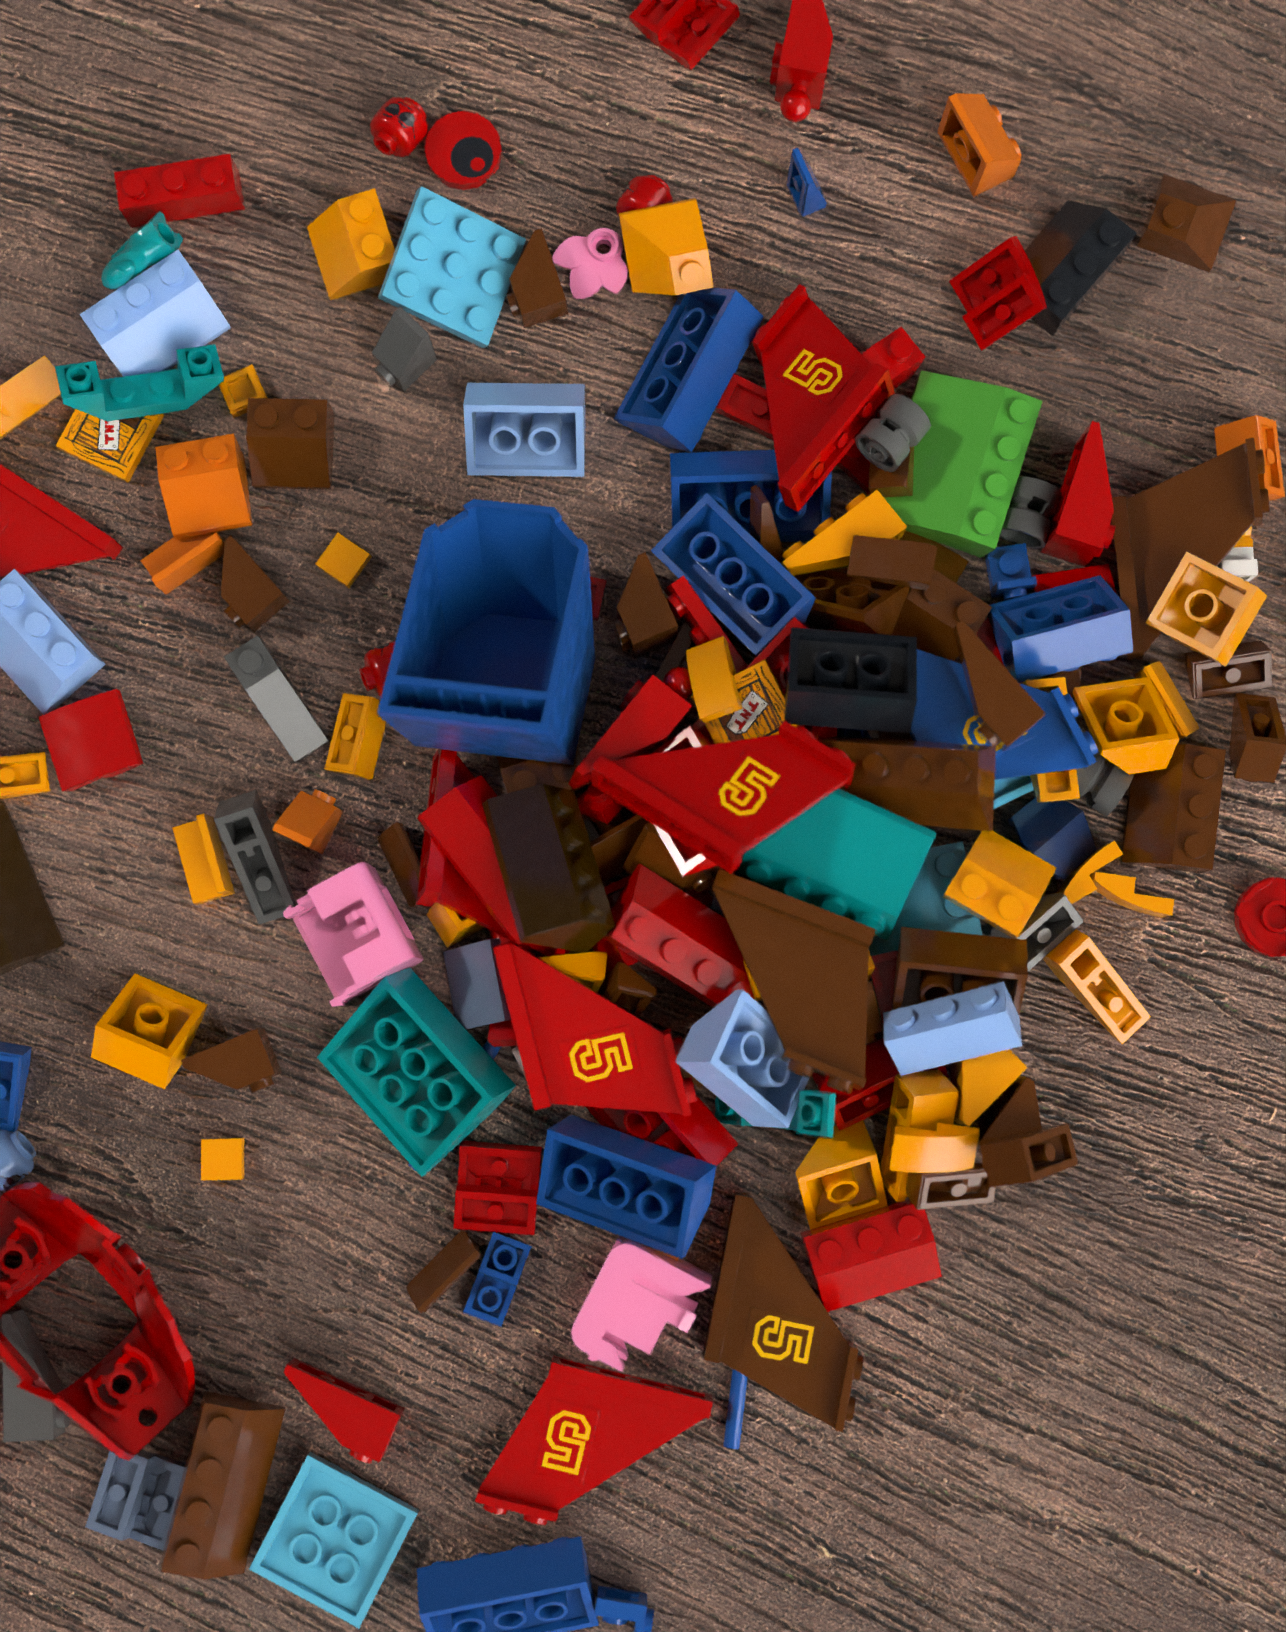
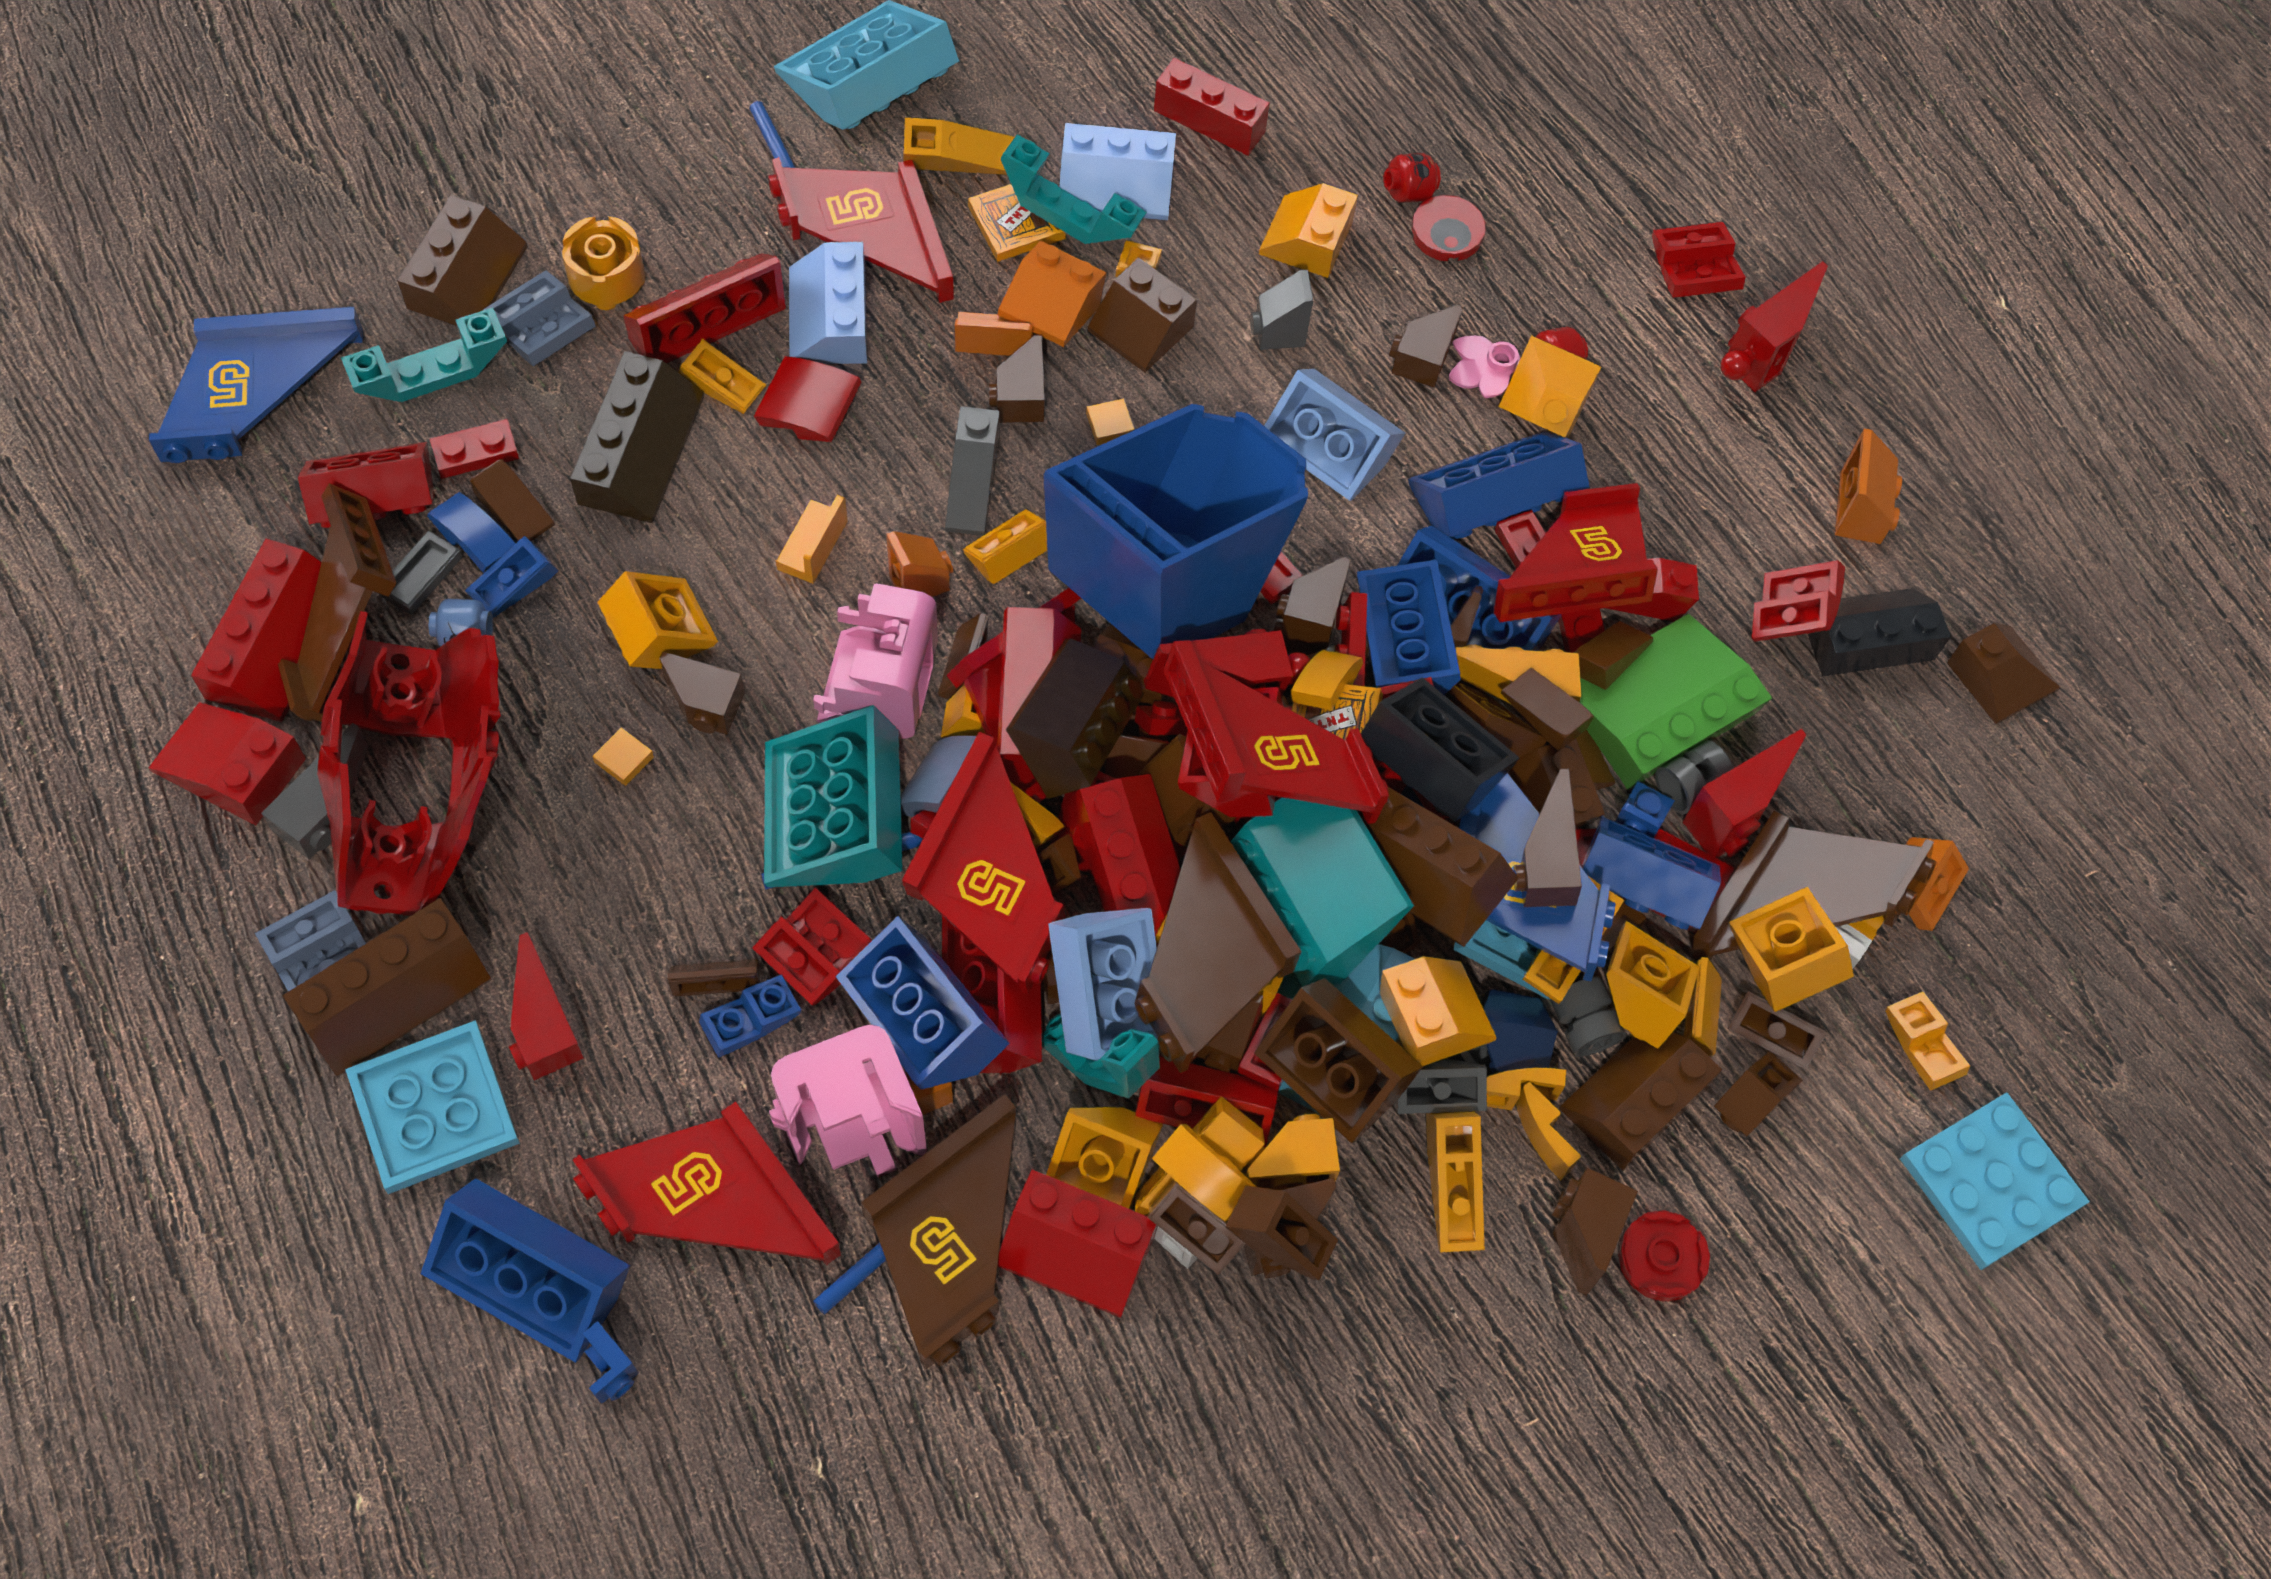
camera: 30 degrees right, 20 degrees down
(141, 251) = (1152, 116): teal animal -> none
(255, 855) = (854, 561): dark grey slope -> none
(451, 267) = (1369, 286): medium azure plate -> none
(804, 185) = (1700, 424): blue slope -> none
(896, 429) = (1625, 623): dark grey wheel -> none
(952, 1029) = (1300, 1083): light blue brick -> none
(1222, 949) = (1590, 1224): none -> reddish brown slope

